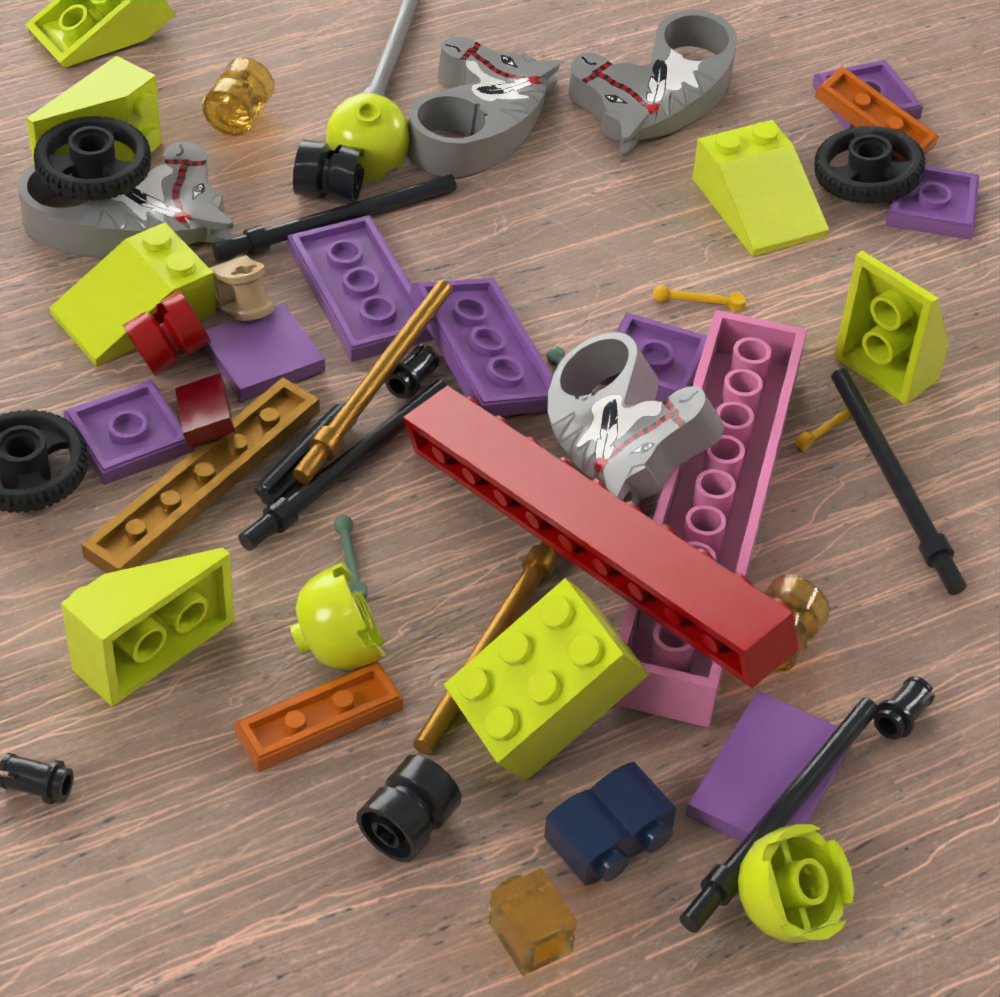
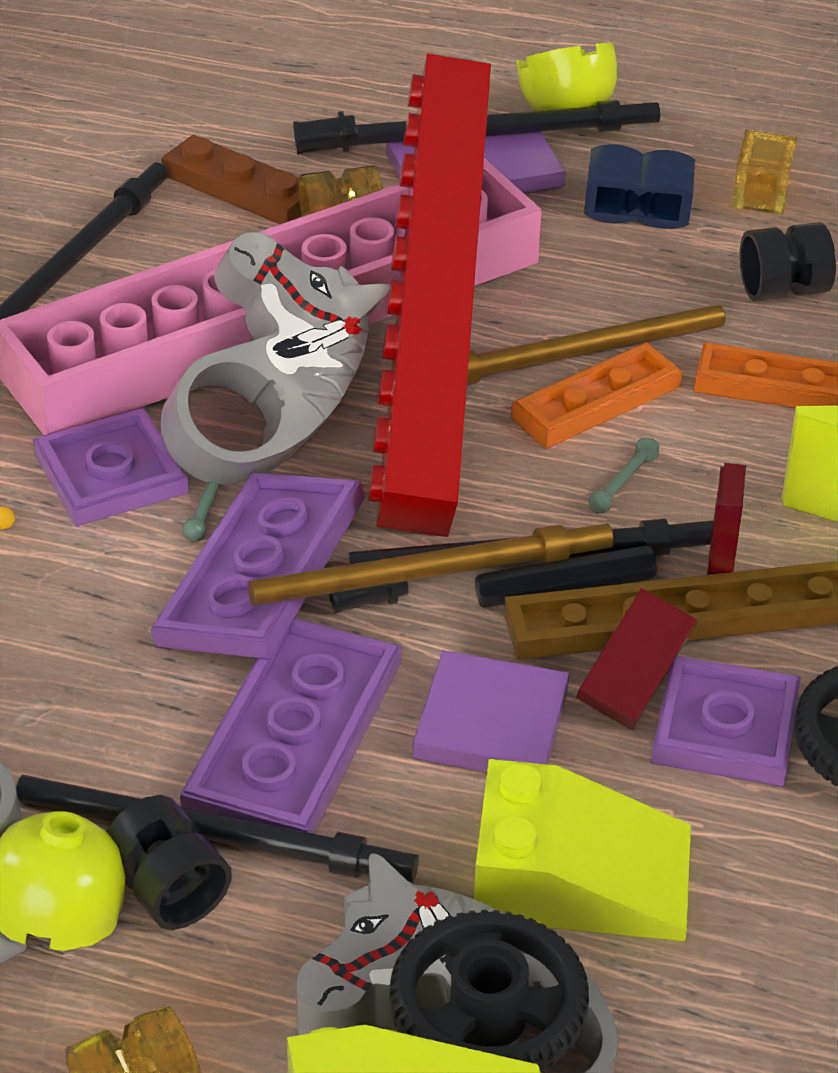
camera: 135 degrees left, 5 degrees down
(167, 333) = (604, 749): red wheel -> none
(218, 498) = (727, 519): none -> dark red tile
(241, 289) = (449, 780): tan piece -> none
(336, 622) = (714, 396): neon yellow cylinder -> none
(433, 612) = (596, 395): none -> orange tile
(545, 680) = (603, 230): neon yellow brick -> none
(902, 626) = (234, 179): none -> dark orange plate

